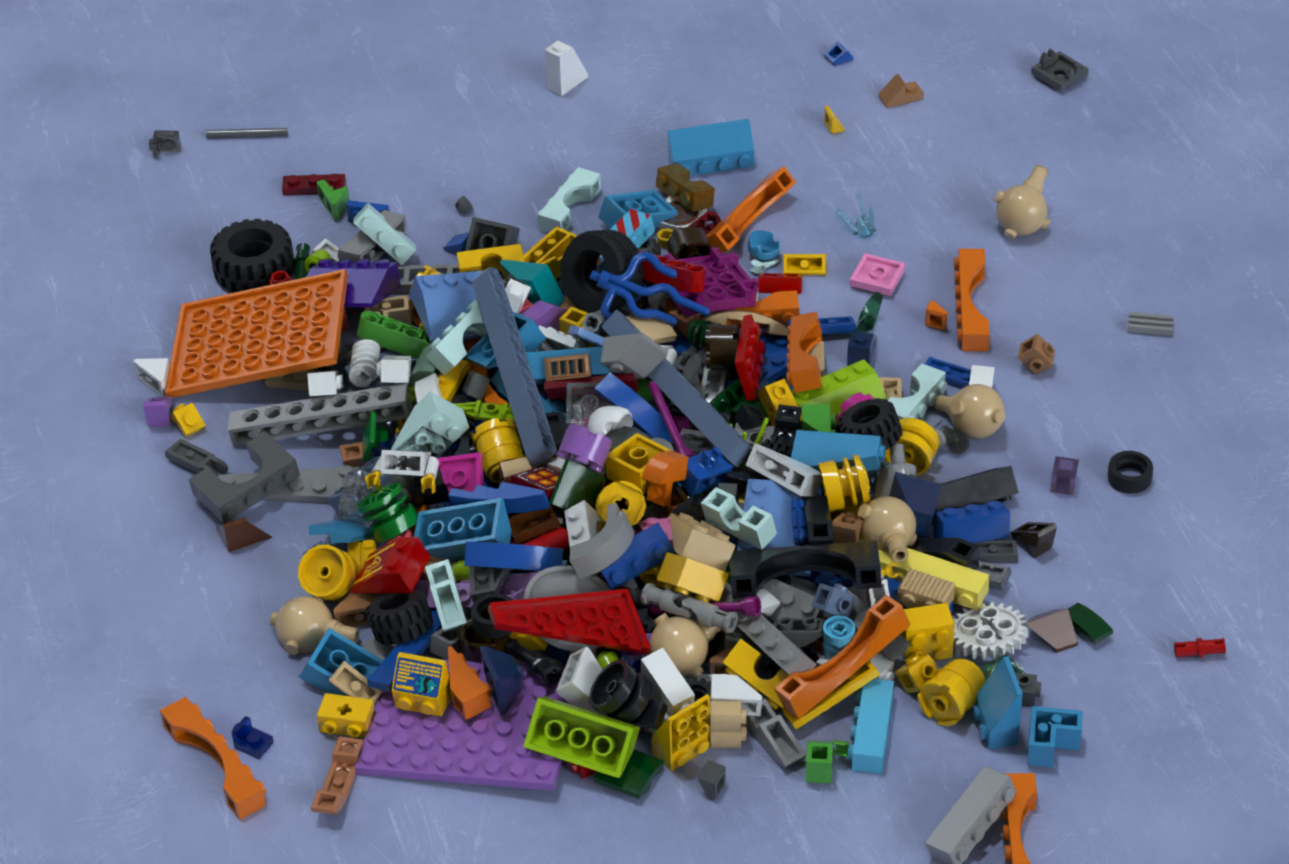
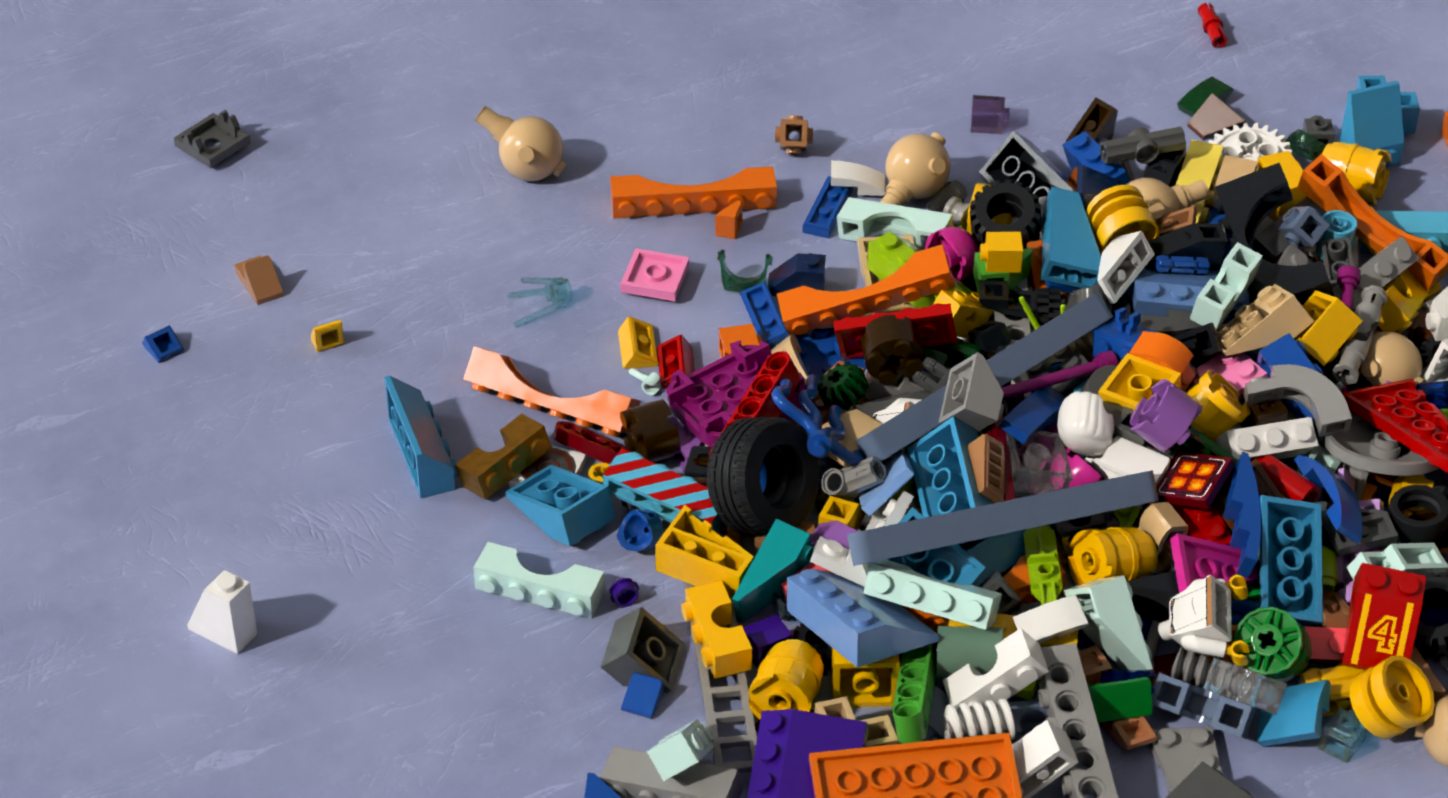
camera: 100 degrees left, 0 degrees up
(463, 205) = (553, 702): dark grey hinge -> none
(763, 246) = (619, 375): dark azure hair -> none
(814, 409) = (1002, 252): none -> yellow brick
(961, 524) = (1142, 145): none -> dark grey piece
(1126, 483) = (963, 82): black tyre -> none
(1150, 324) = (706, 53): light grey tile -> none

